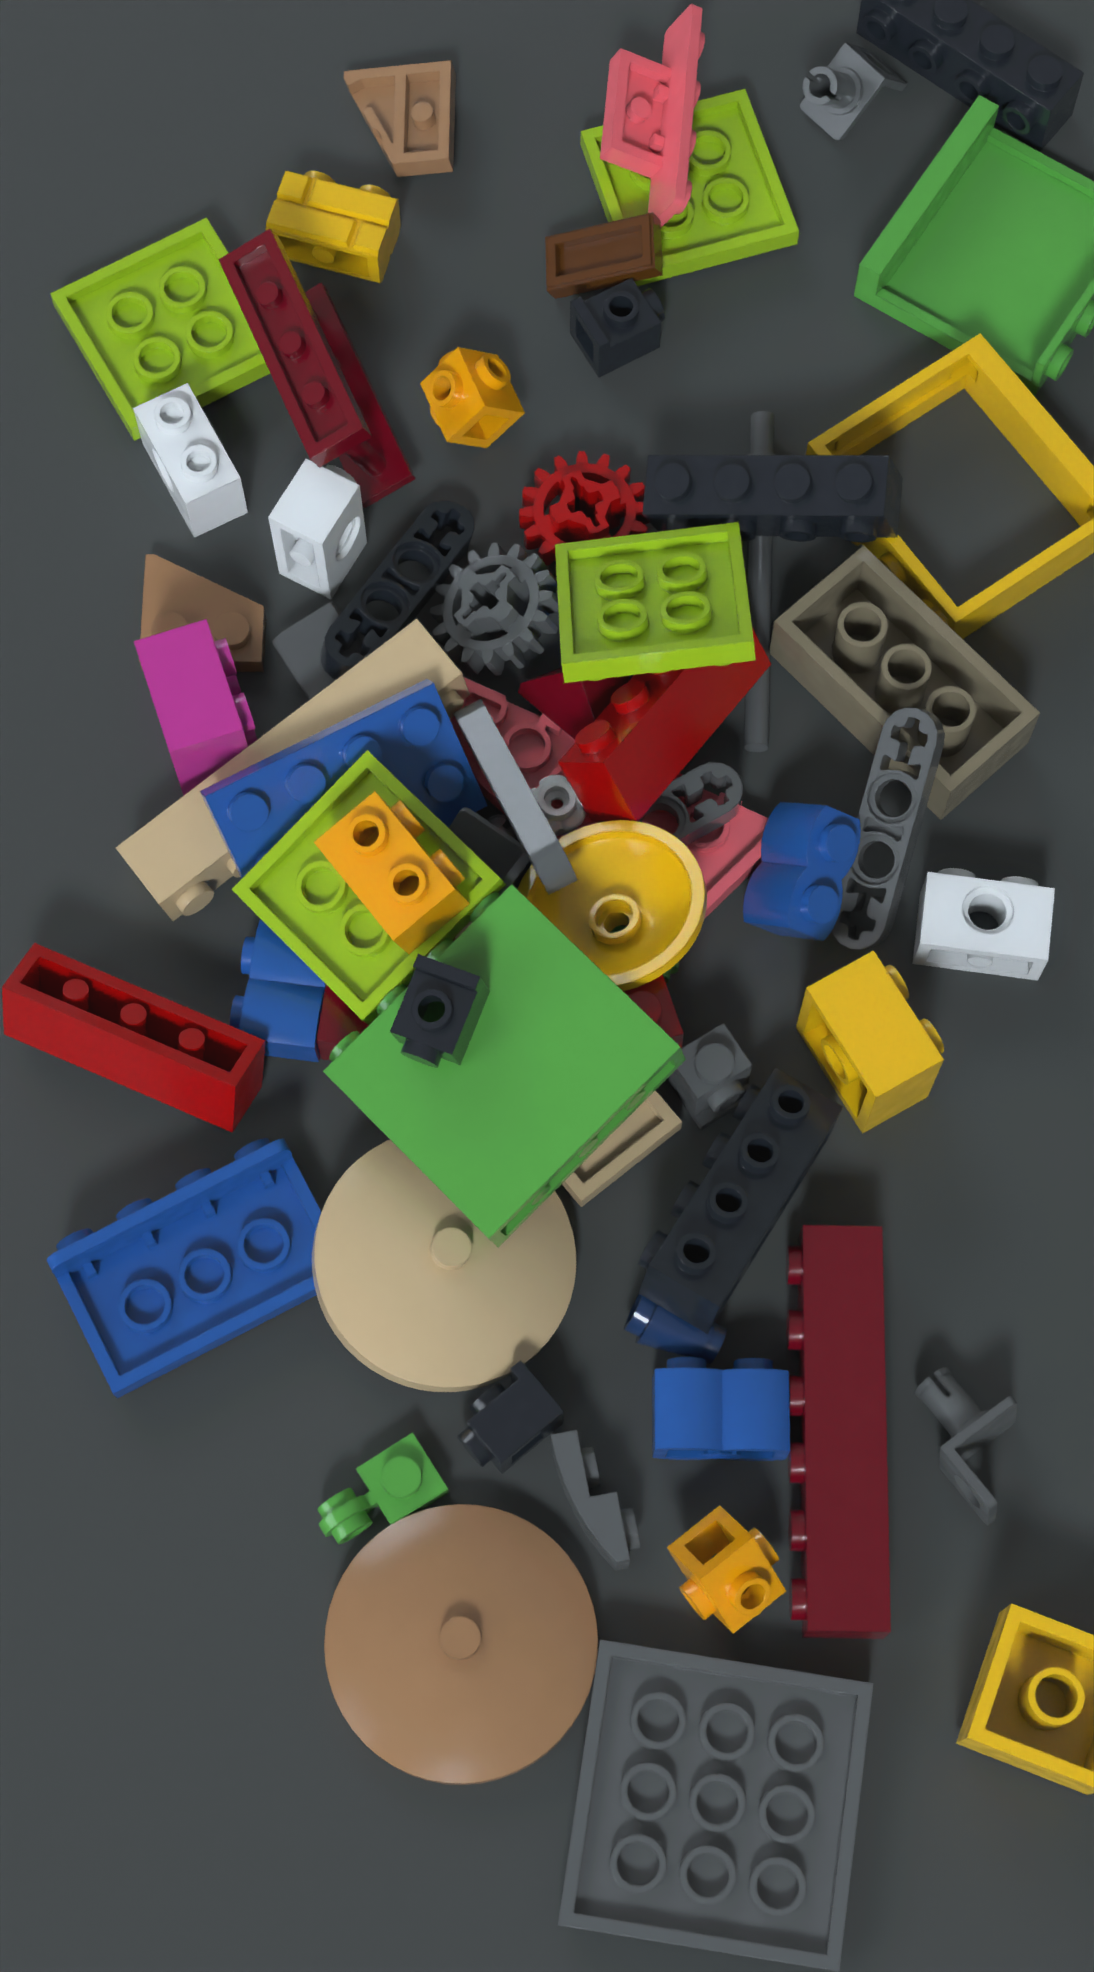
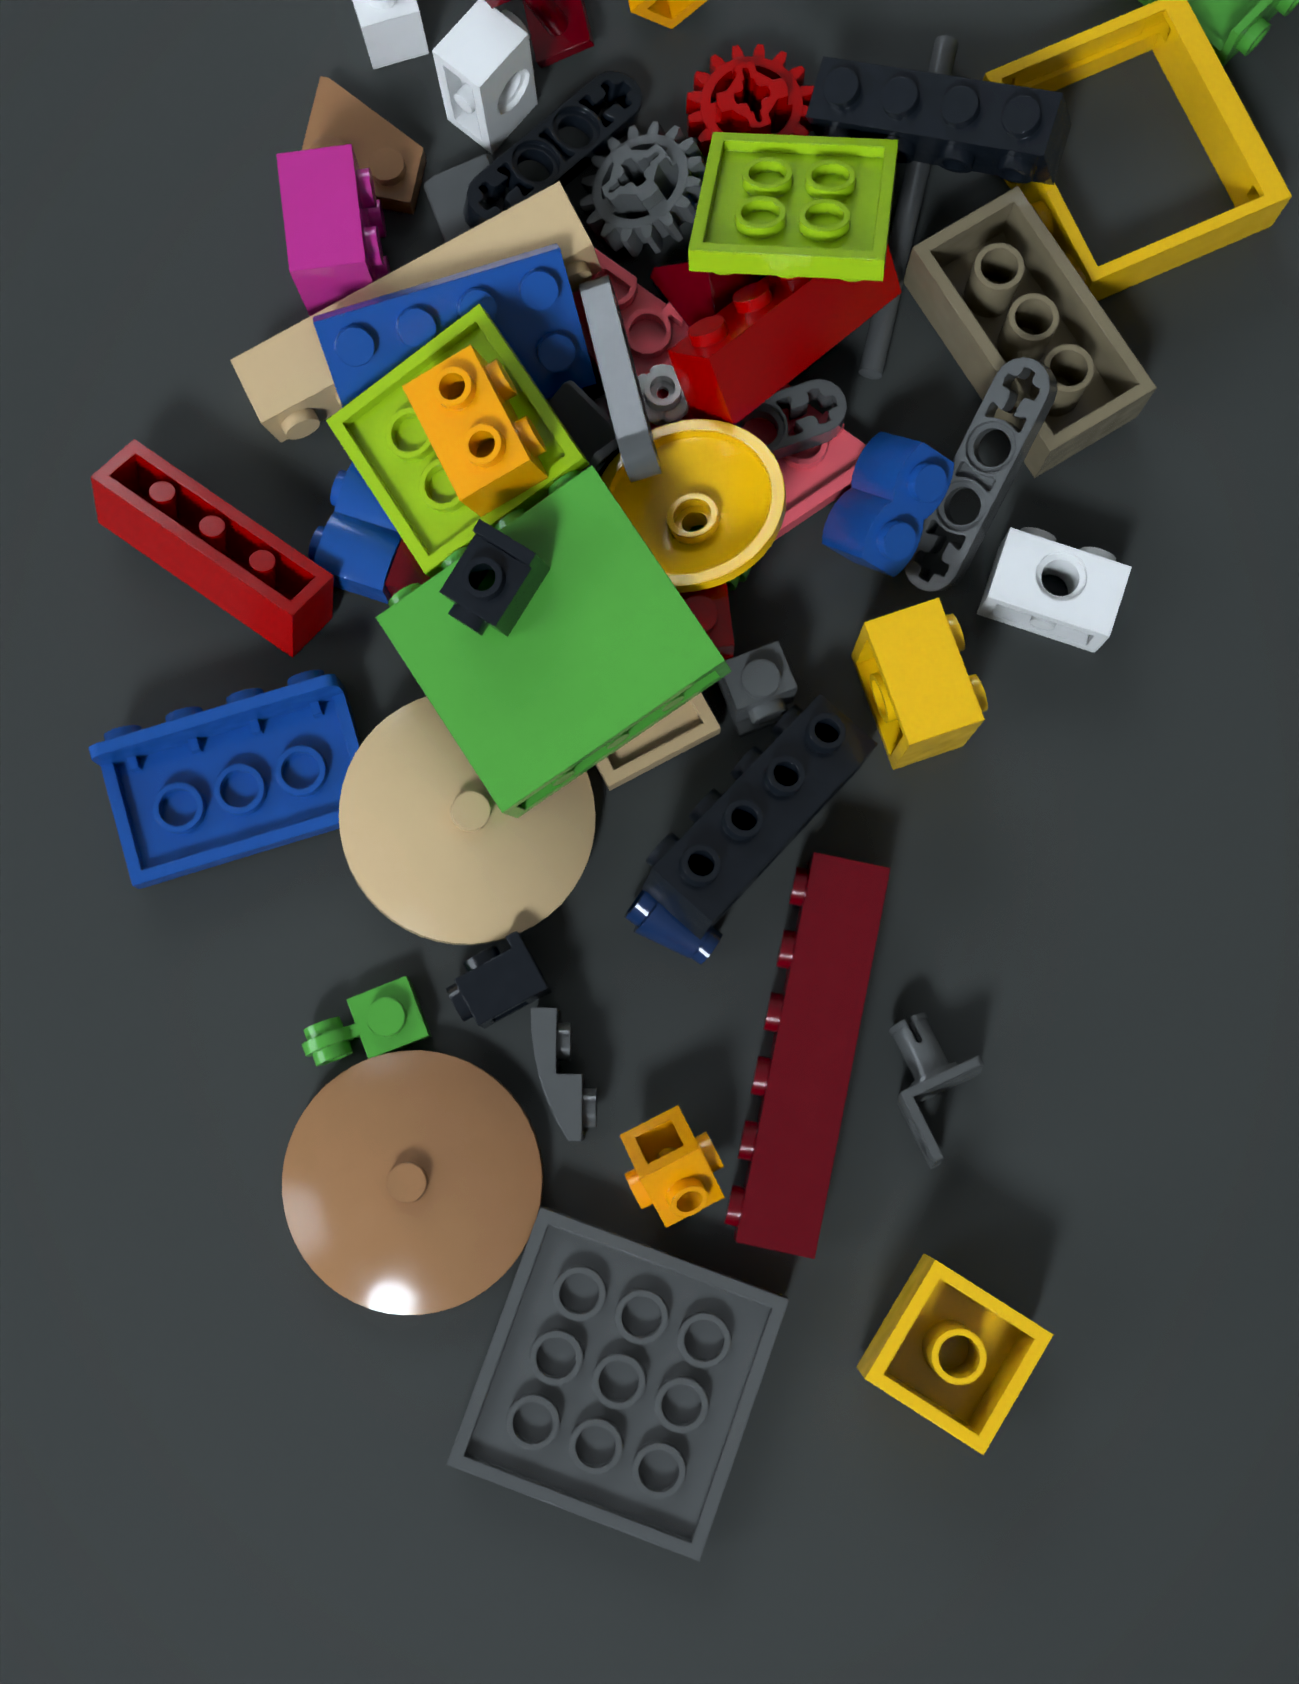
camera: 15 degrees right, 10 degrees up
(720, 1412) = (700, 1013): blue brick -> none

